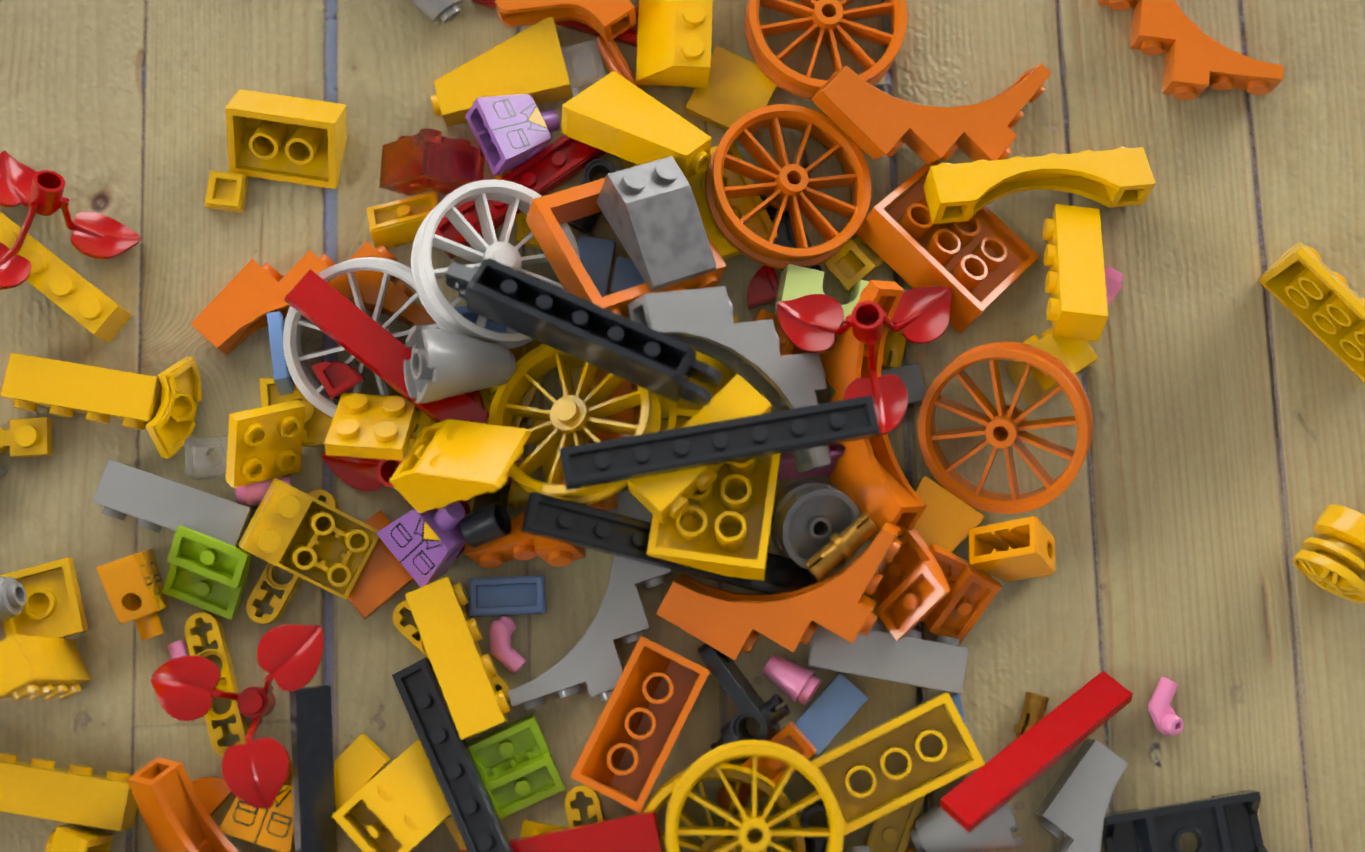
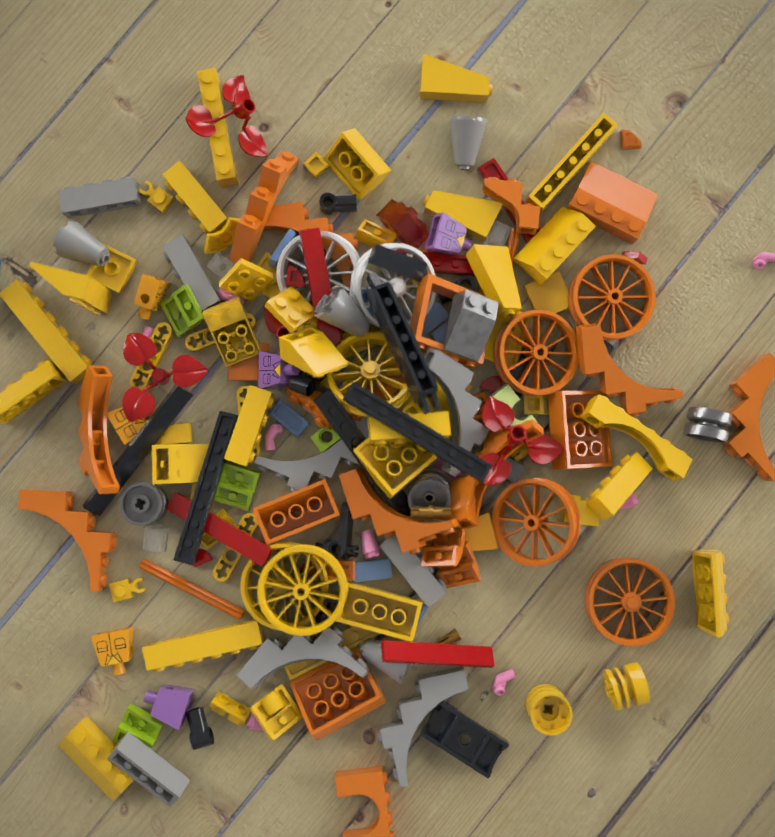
camera: 40 degrees right, 5 degrees up
(191, 313) = (261, 200): none -> orange arch
(212, 792) = (115, 396): orange tile -> none
(311, 214) = (341, 203): none -> black piece
(472, 223) = (397, 262): none -> black tile
(593, 591) = (323, 446): none -> lime brick
(1013, 549) = (503, 573): light orange torso -> none
(1120, 80) = (707, 424): none -> flat silver wheel
(1240, 427) = (630, 601): none -> orange wheel
(1288, 694) = (552, 719): none -> yellow wheel

